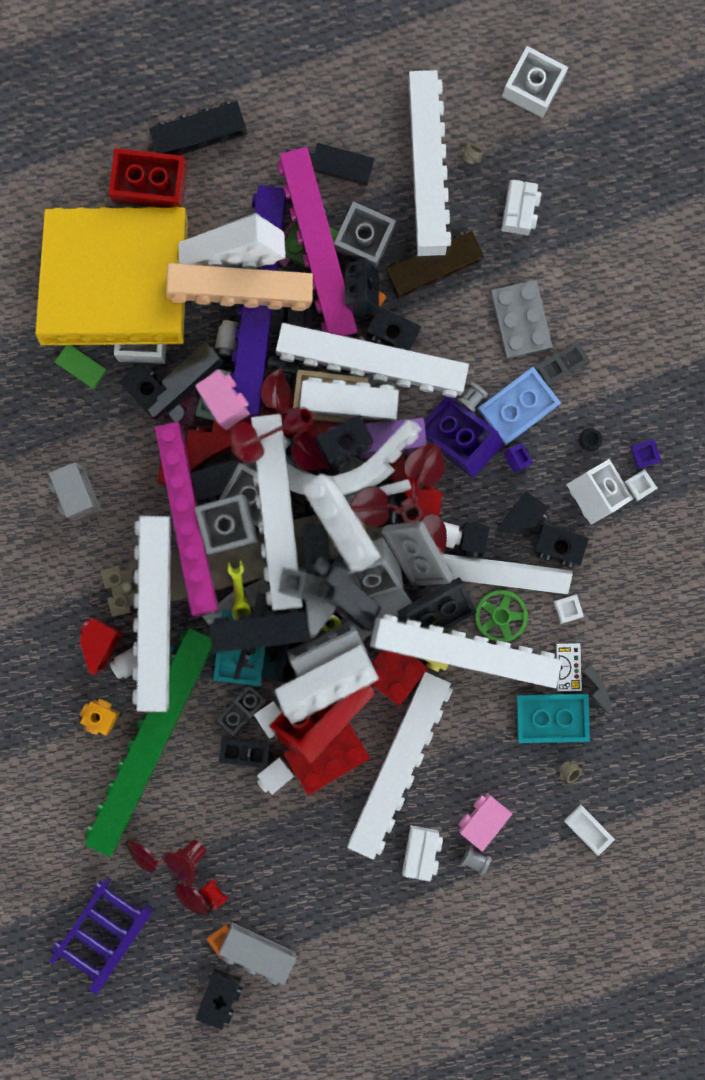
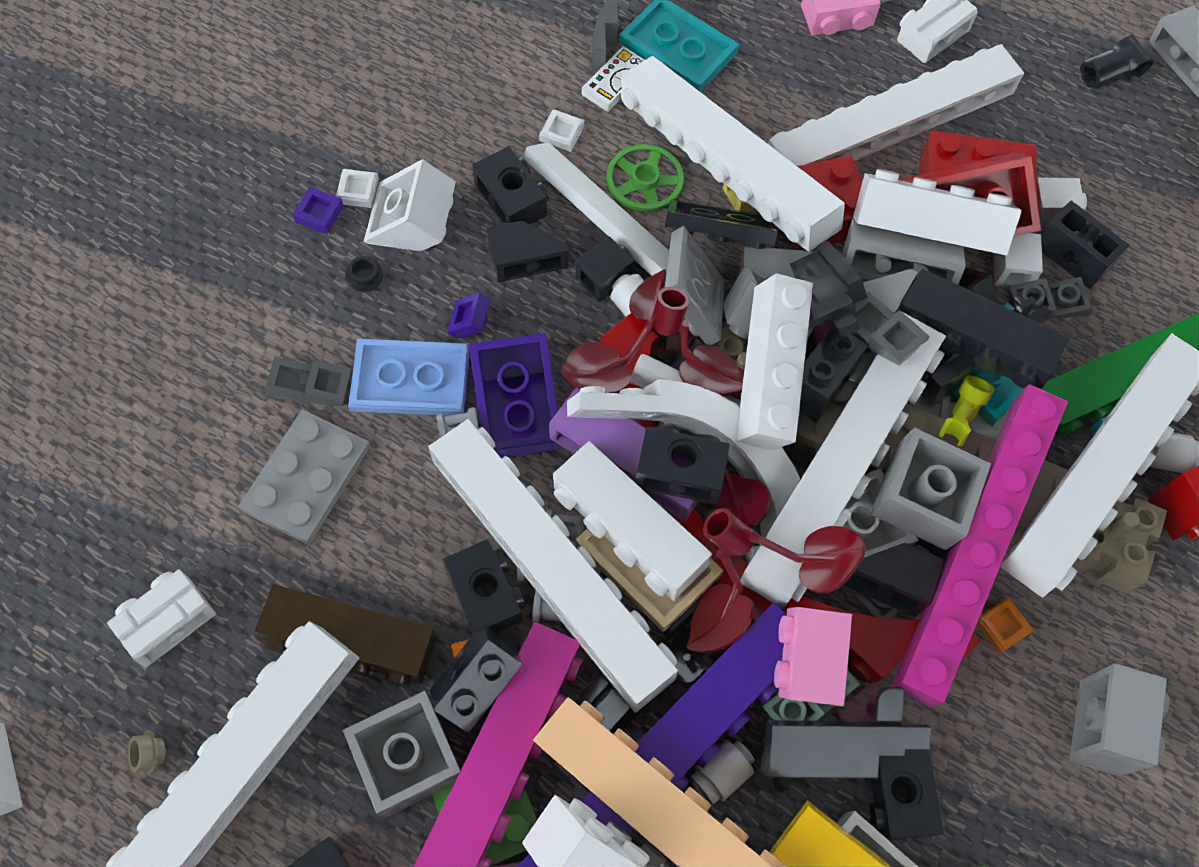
camera: 145 degrees left, 20 degrees down
(151, 505) = (1003, 625): none -> orange tile
(300, 914) = (1123, 60): none -> black piece

